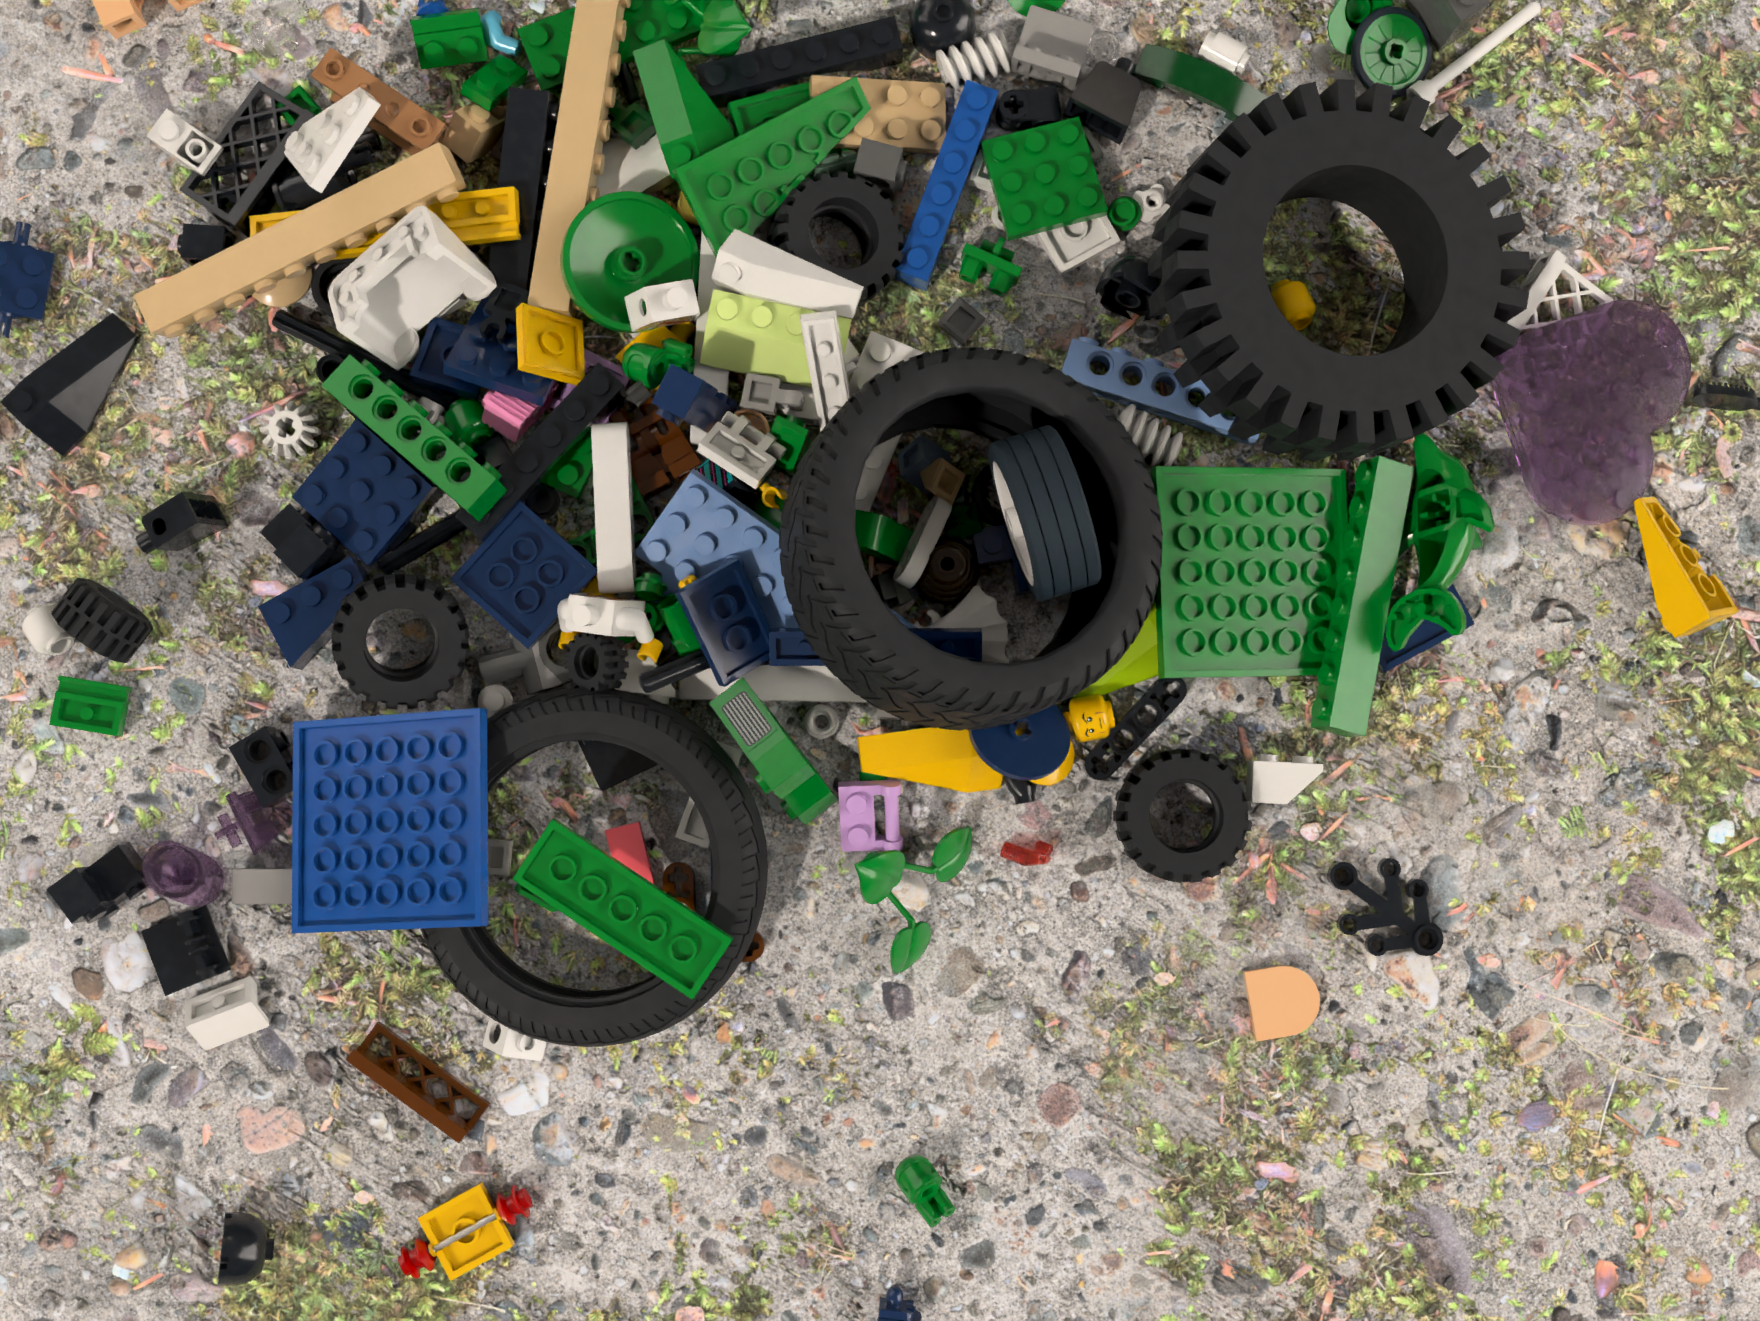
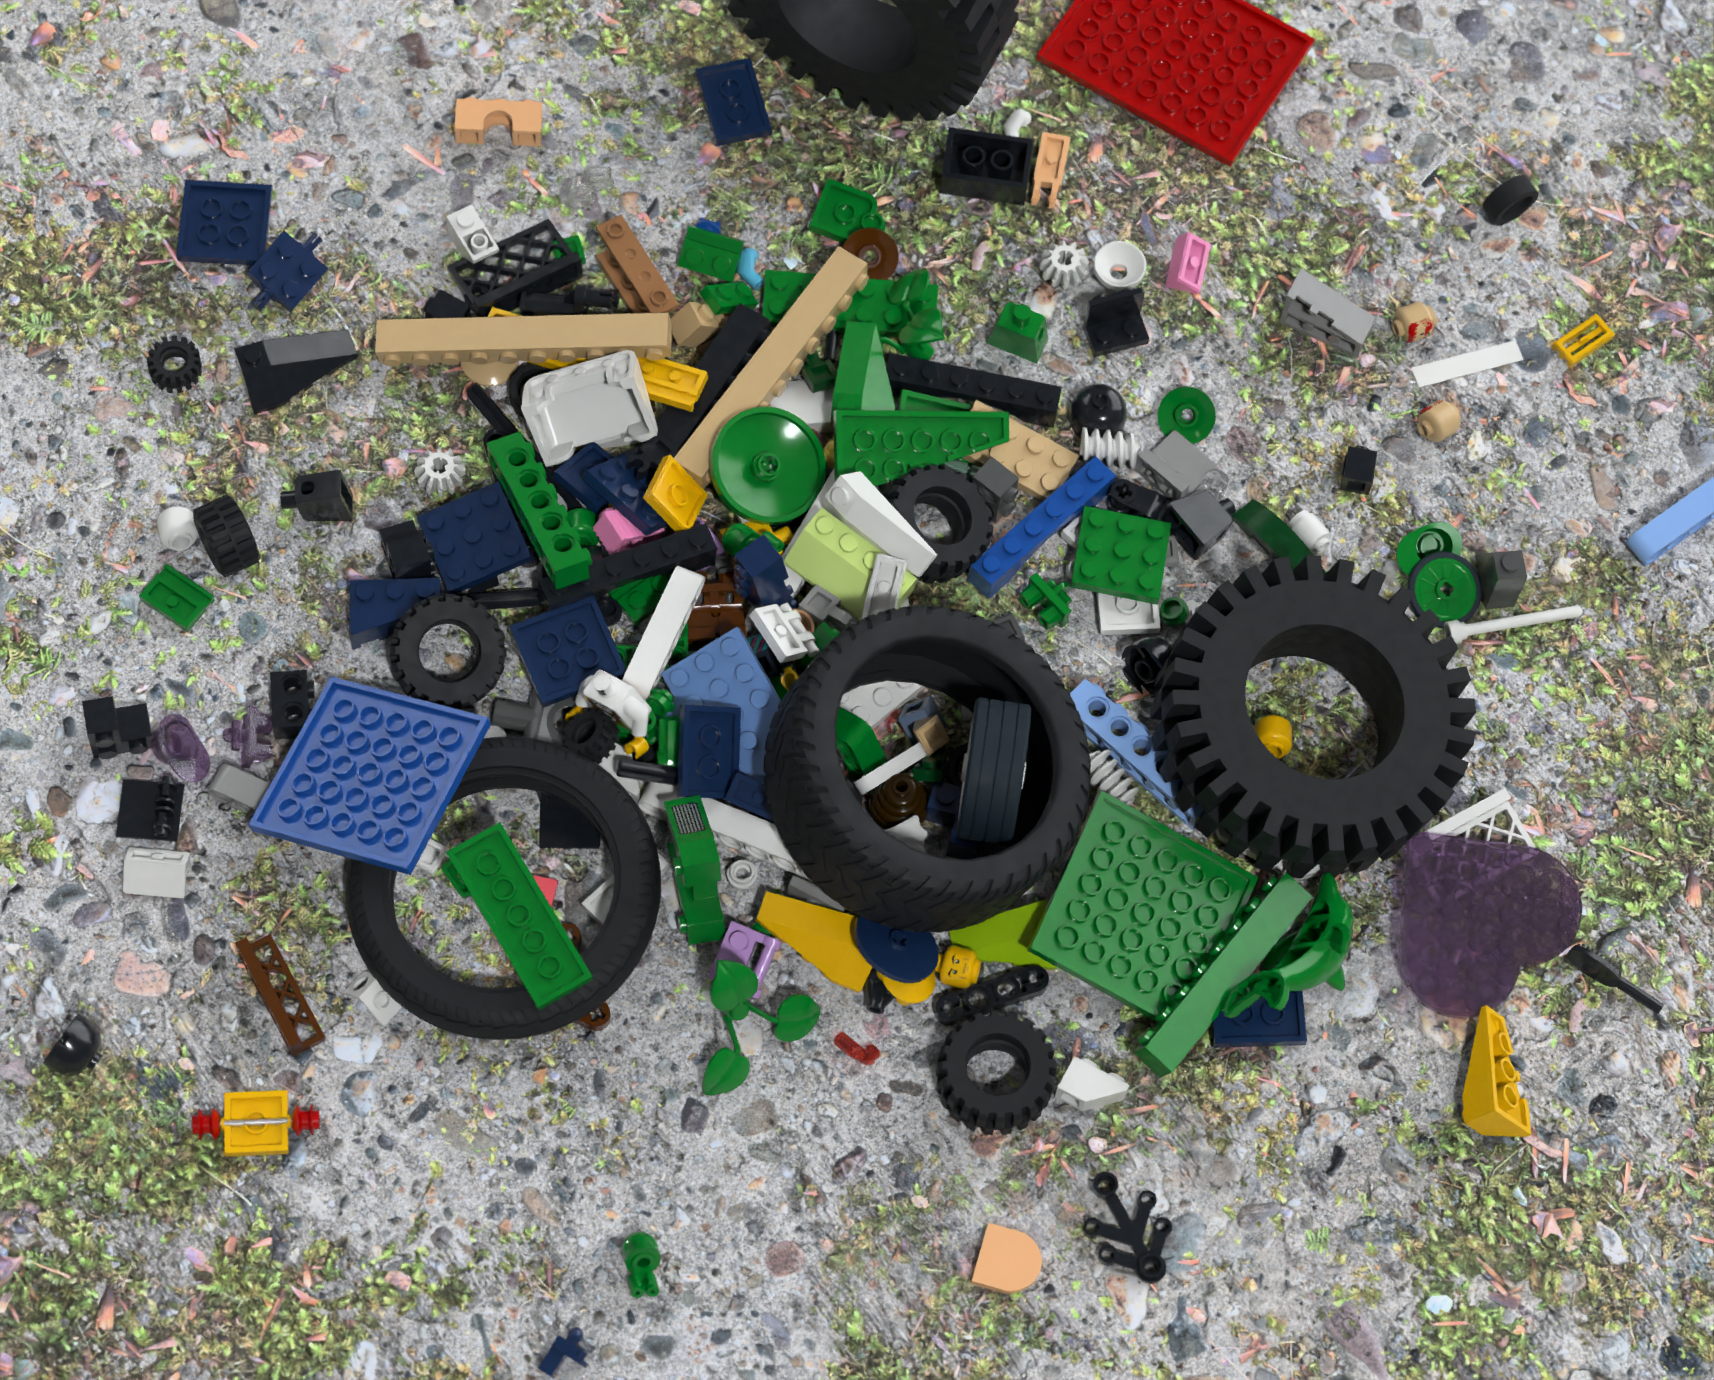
camera: 20 degrees right, 20 degrees down
(329, 137) = (583, 275): white plate -> none
(665, 305) = (780, 505): white torso -> none

